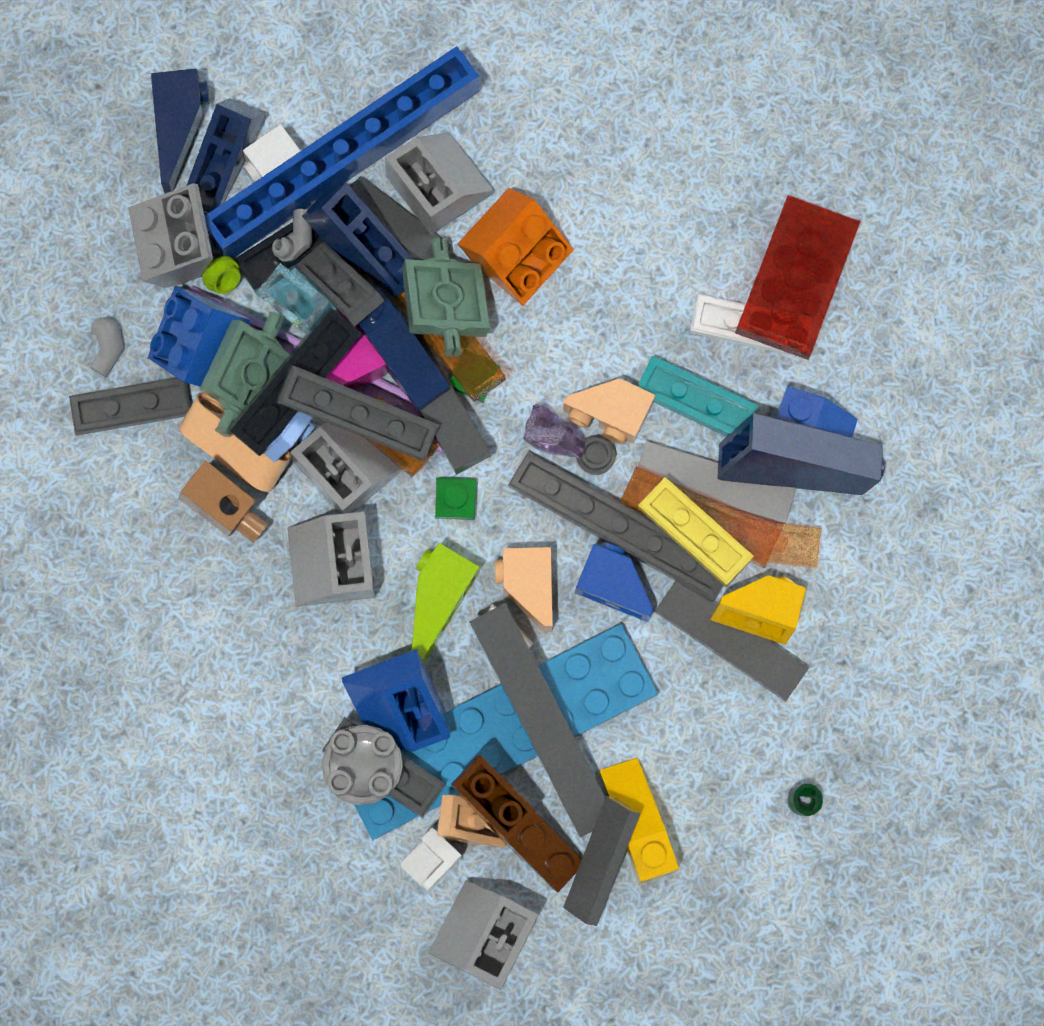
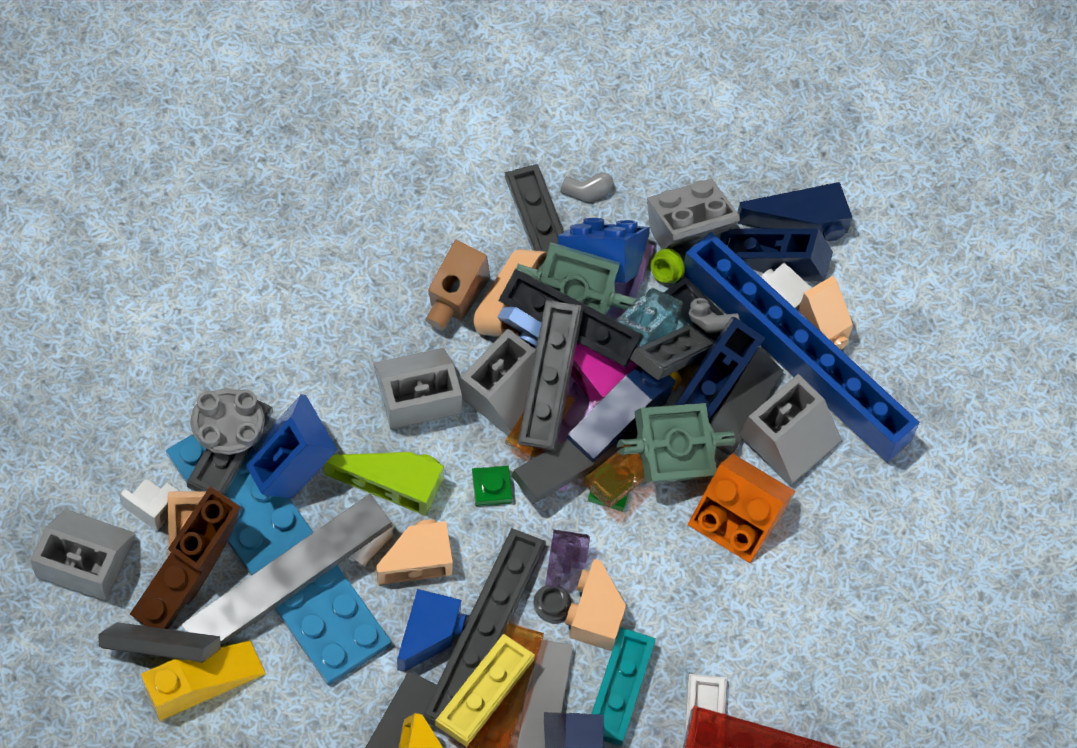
camera: 80 degrees right, 15 degrees down
(312, 116) = (828, 311): none -> light nougat slope

